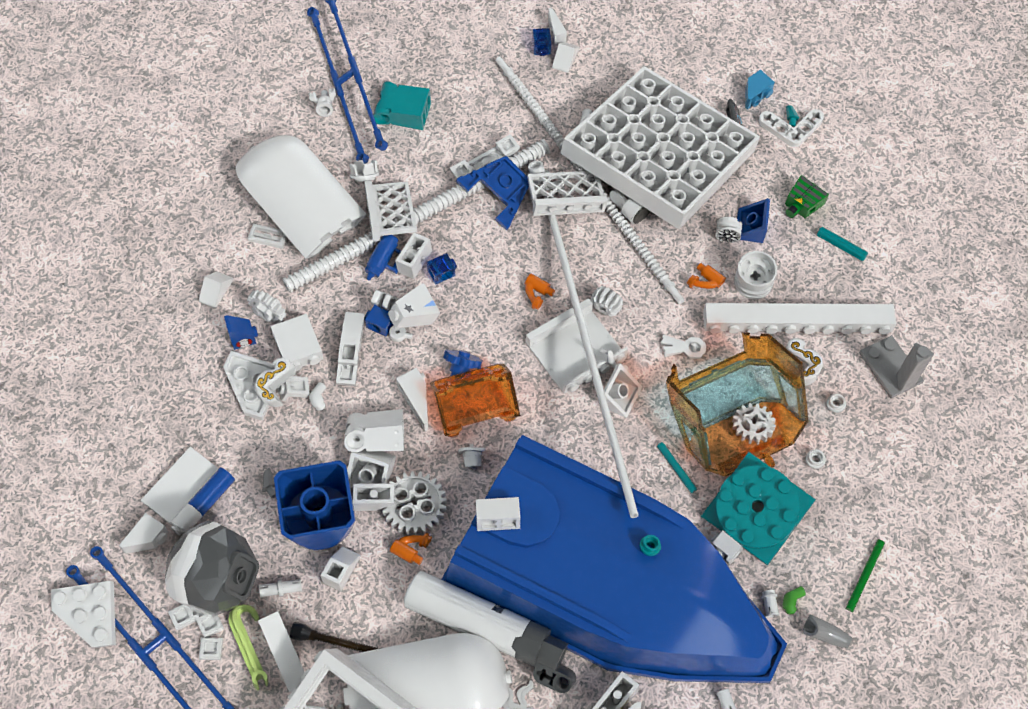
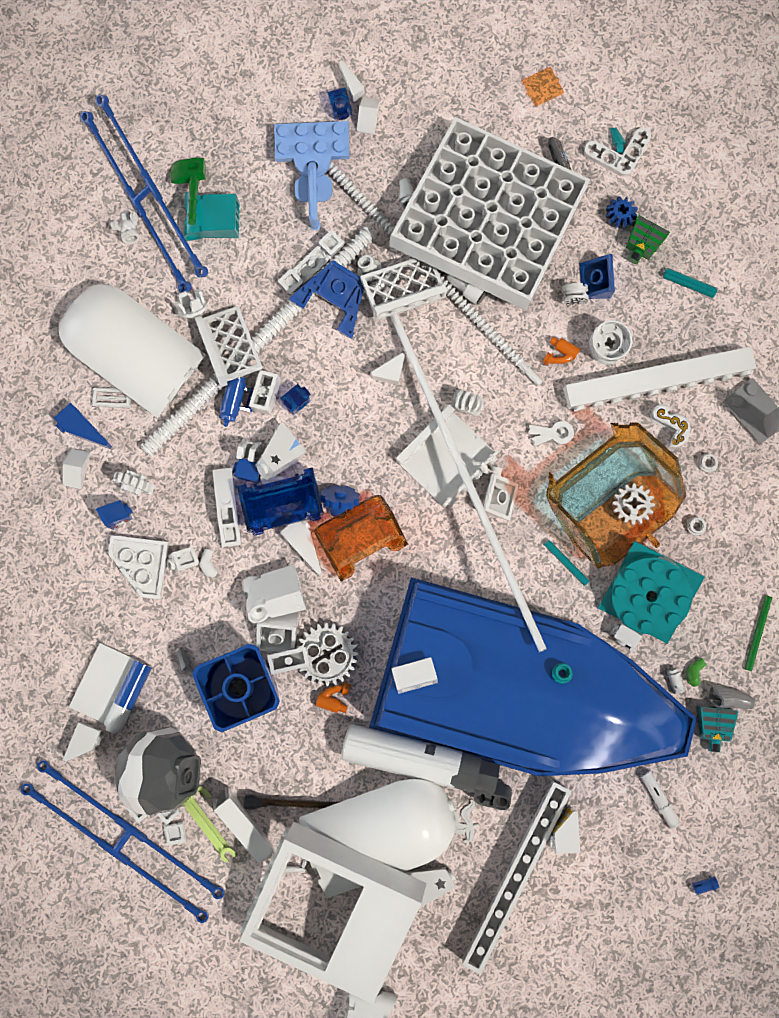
camera: 10 degrees left, 20 degrees up
(88, 611) = (53, 825): white plate -> none
(230, 253) = (75, 424): none -> blue slope
(272, 379) = (159, 563): white animal -> none
(280, 588) = (223, 763): white pin -> none
(297, 341) = (173, 512): white brick -> none
(340, 568) = (274, 733): white slope -> none
(393, 69) = (190, 172): none -> green piece
(404, 349) = (281, 502): none -> clear blue windscreen
(472, 455) = (371, 594): white piece -> none
(507, 73) = (311, 146): none -> light blue plate
(537, 261) = (390, 371): none -> white slope
(539, 285) = (392, 394): orange plant -> none
(730, 63) = (543, 86): none -> clear orange piece
(757, 88) = (576, 114): dark azure slope -> none
(785, 172) = (625, 207): none -> blue gear
(806, 656) = (716, 725): none -> torso

